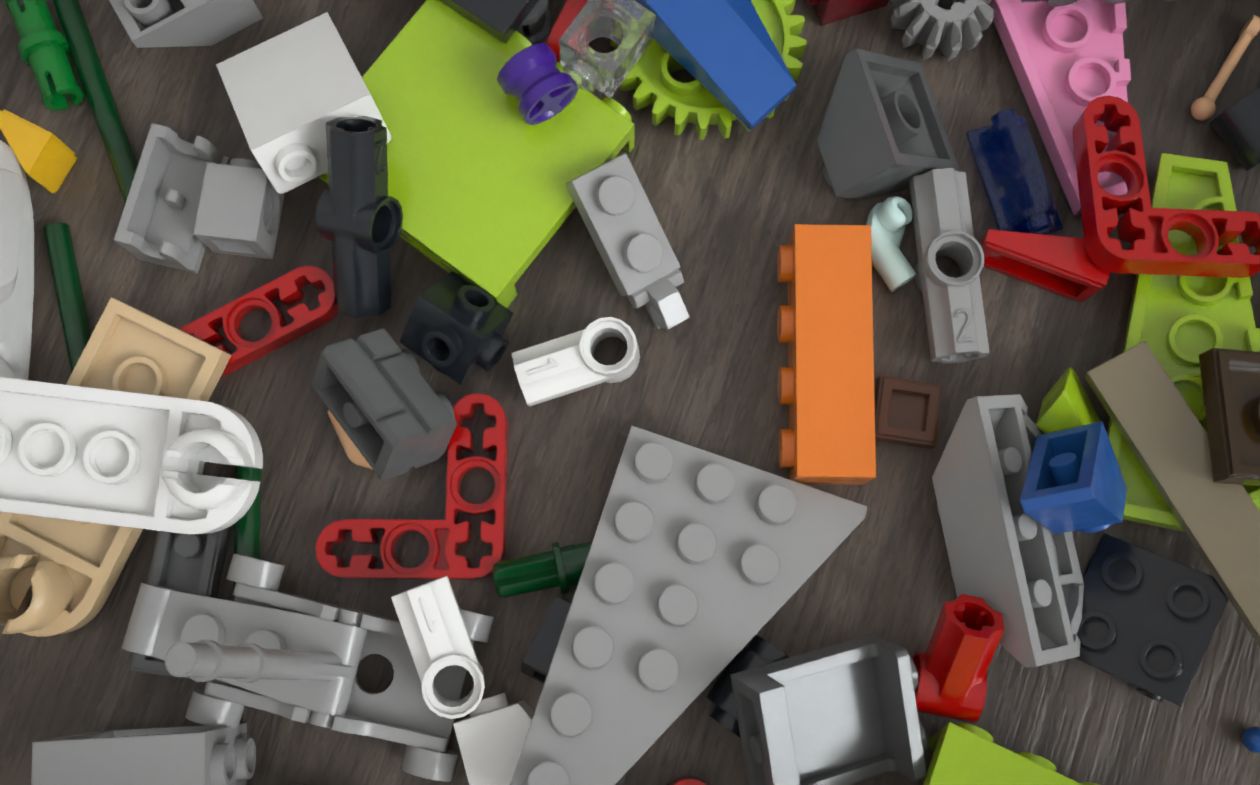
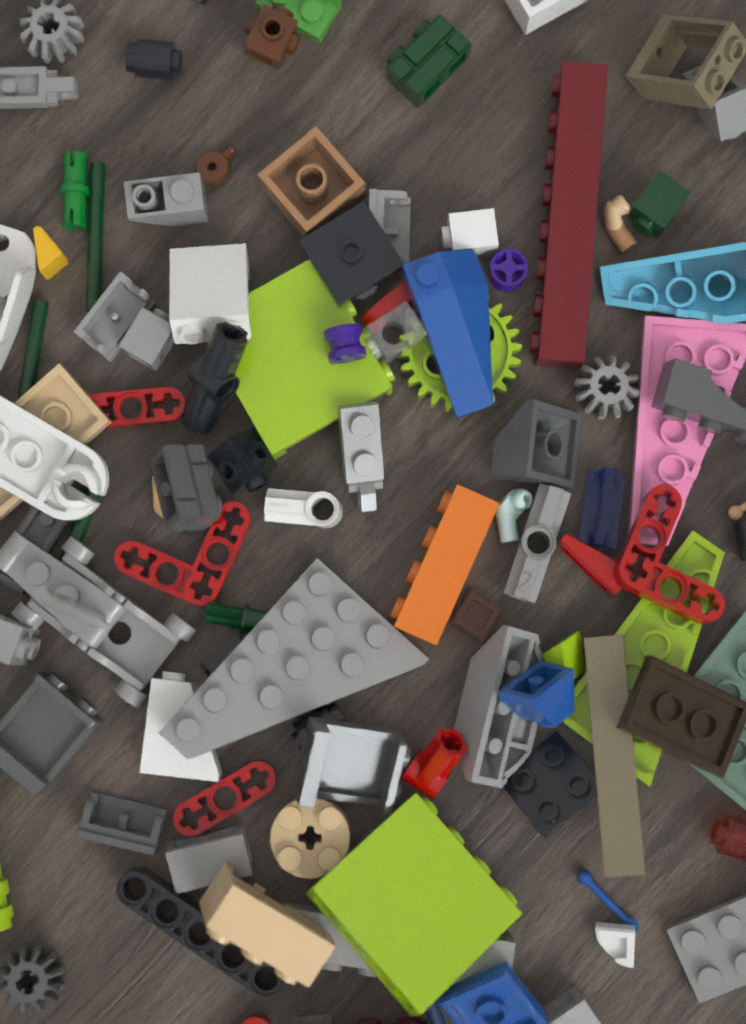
camera: 25 degrees right, 5 degrees up
(438, 640) = (161, 630): white piece -> none

